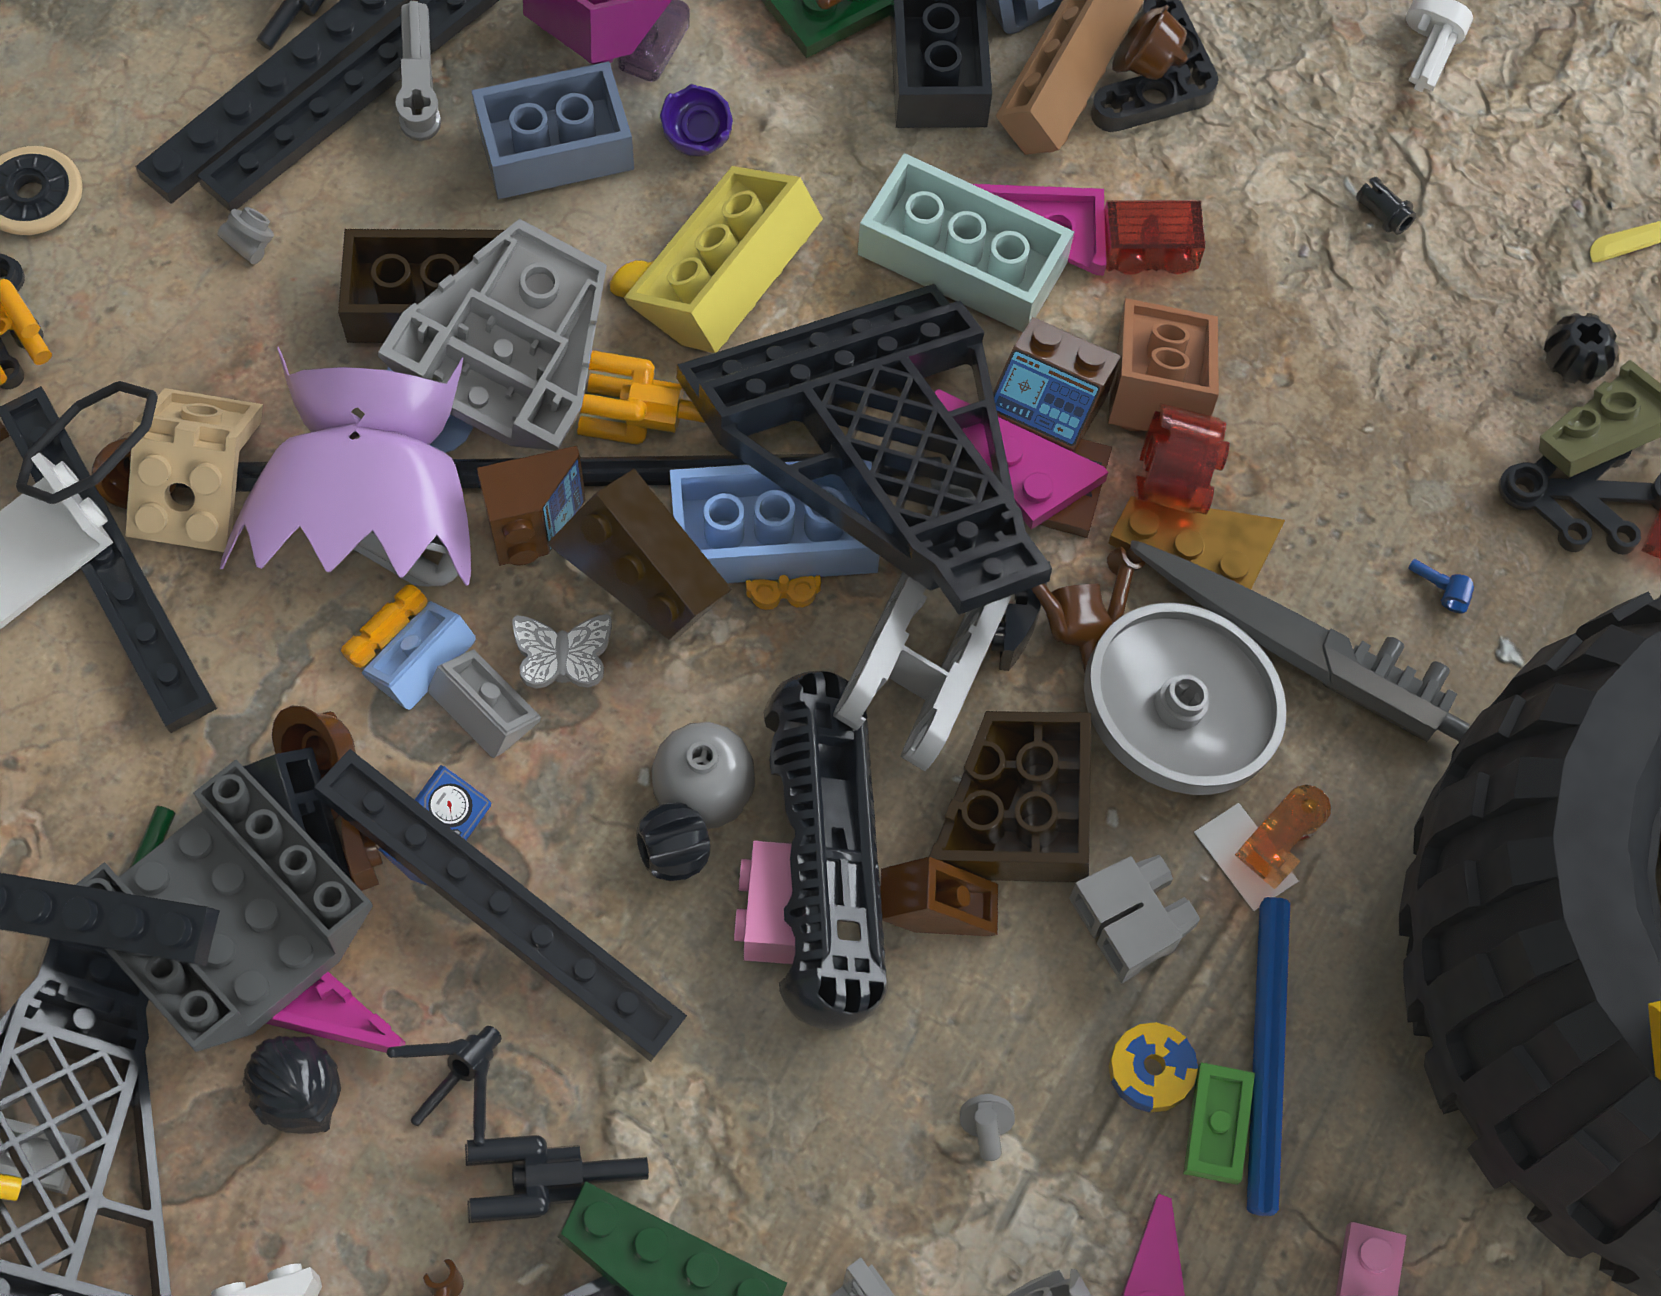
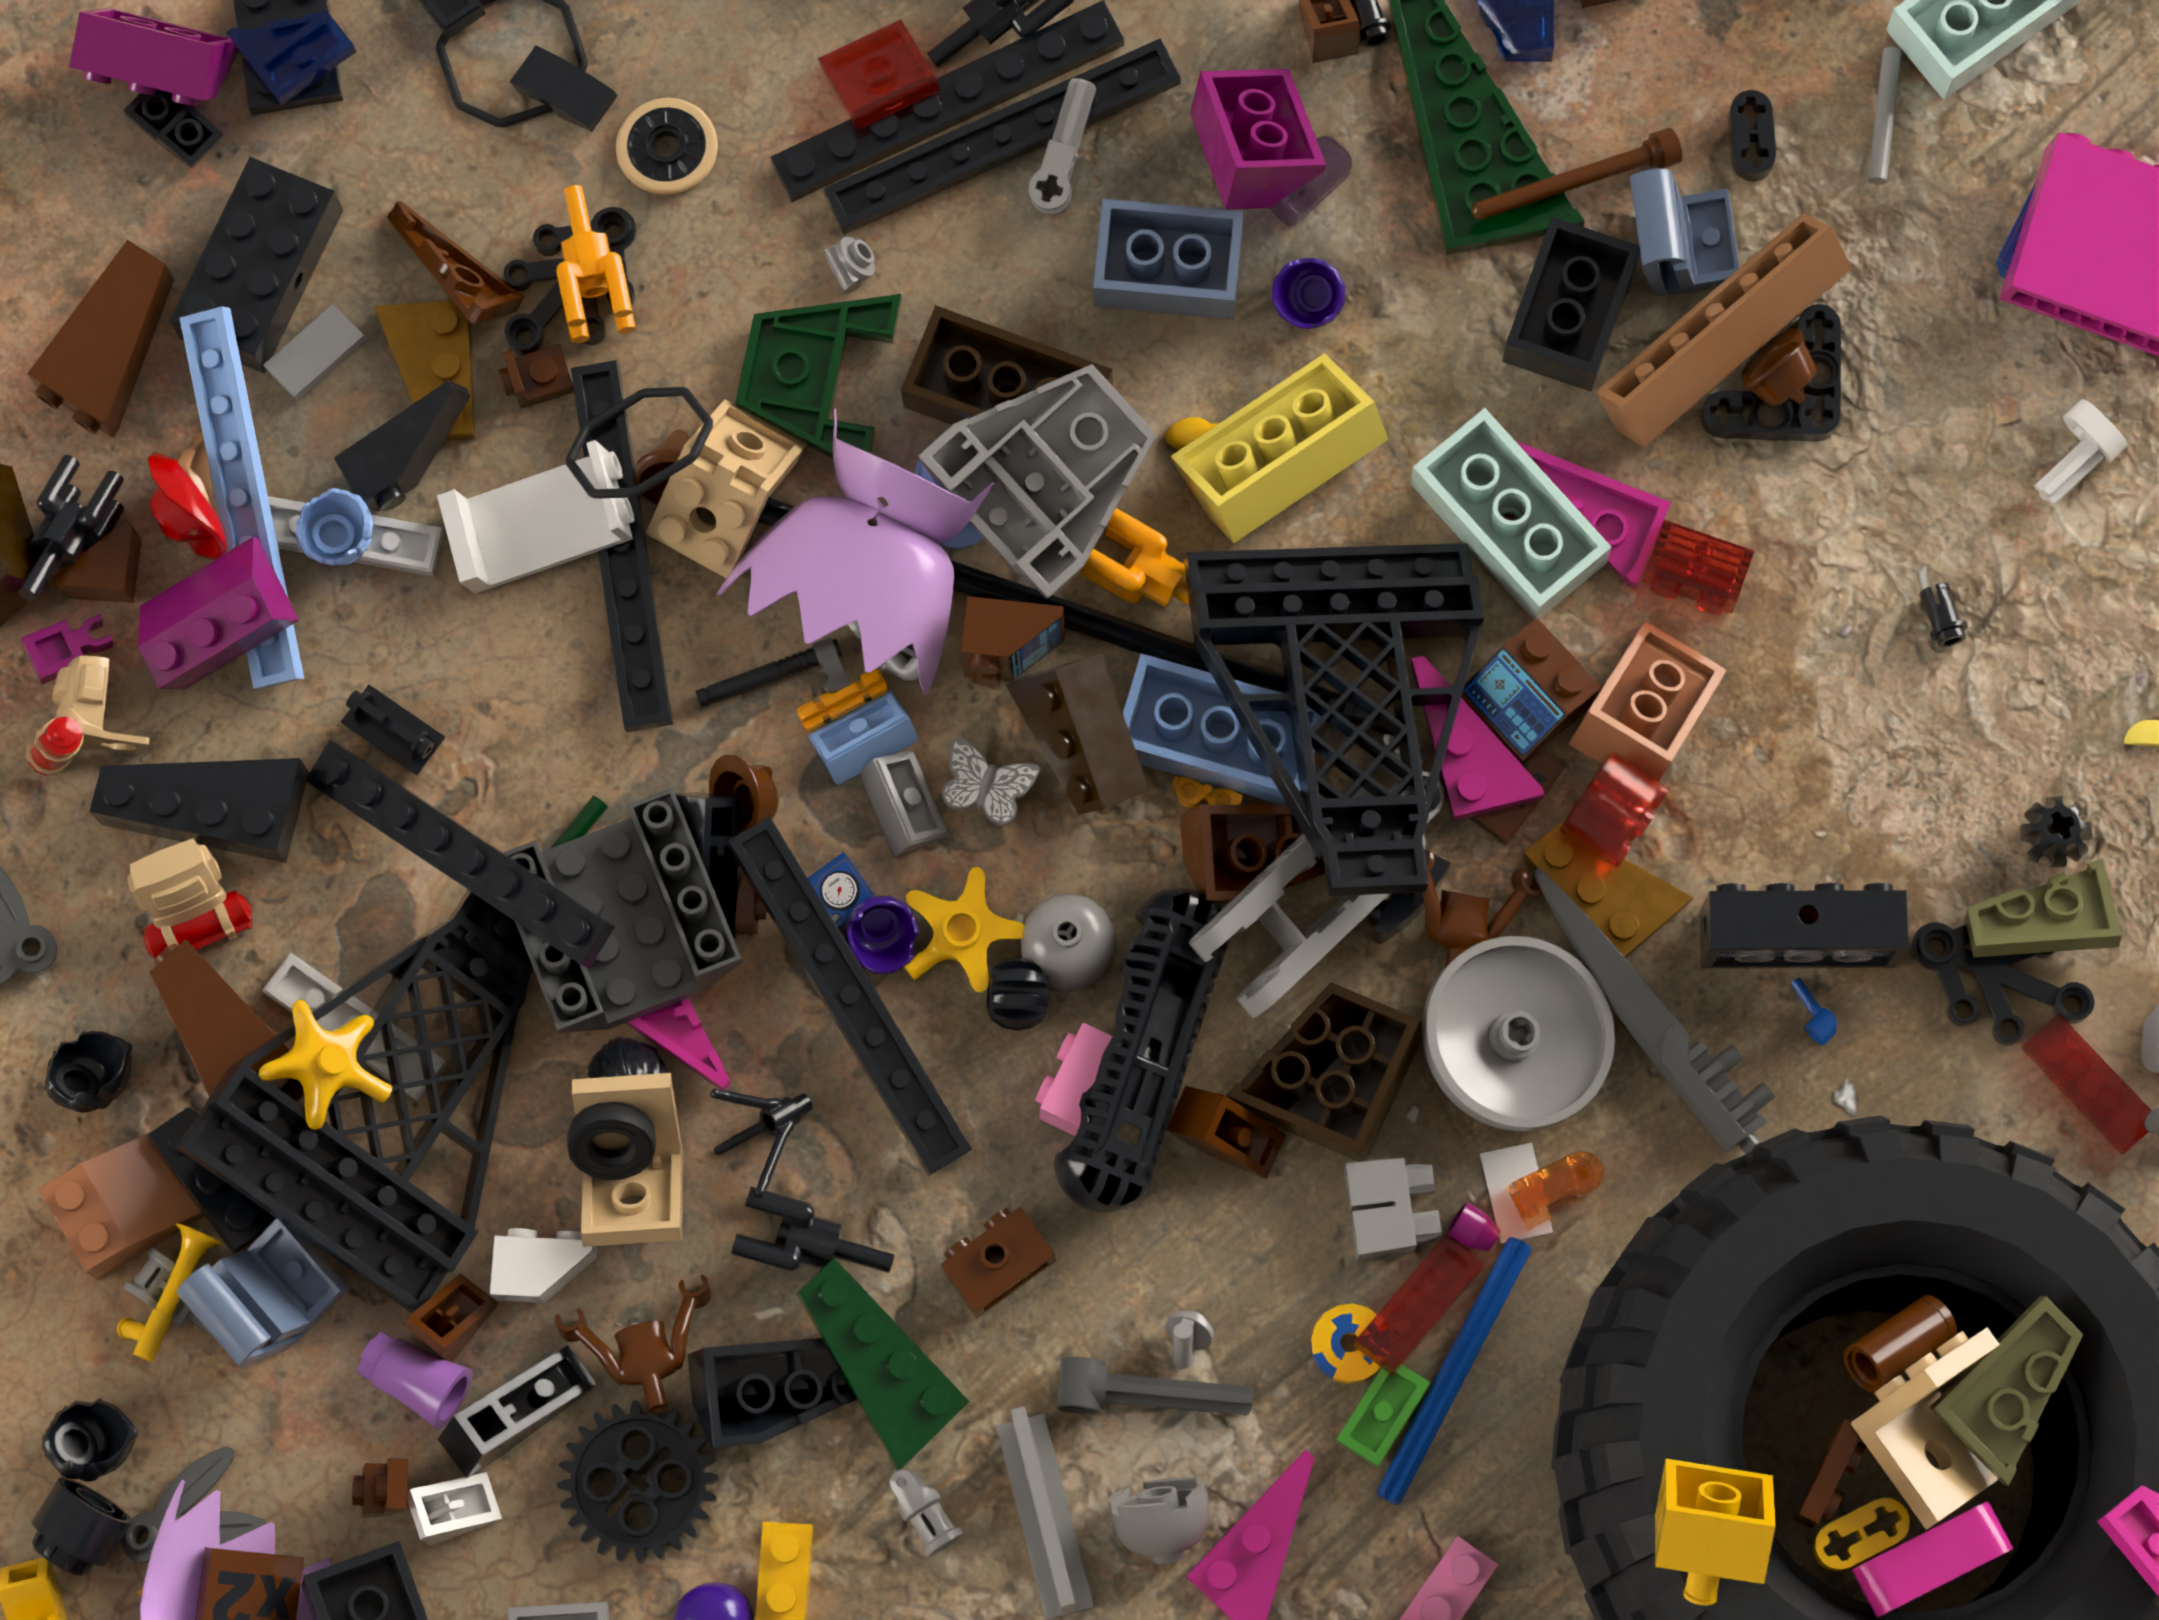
camera: 30 degrees right, 10 degrees up
(216, 65) = (879, 74): none -> clear red tile
(225, 331) = (797, 362): none -> dark green wing
(281, 1122) = (611, 1118): none -> black tyre
(320, 1161) = (659, 1214): none -> tan bracket
(349, 588) = (823, 653): none -> black piece
(510, 831) = (882, 934): none -> dark purple hair
(590, 801) = (961, 930): none -> yellow animal
(758, 1121) = (997, 1260): none -> reddish brown brick
(833, 616) = (1234, 844): none -> reddish brown wedge
(907, 1215) = (1087, 1386): none -> dark grey axle
(1207, 1000) = (1418, 1305): none -> clear red plate
(1223, 904) = (1473, 1228): none -> magenta hose
(1405, 504) = (1803, 927): none -> black brick

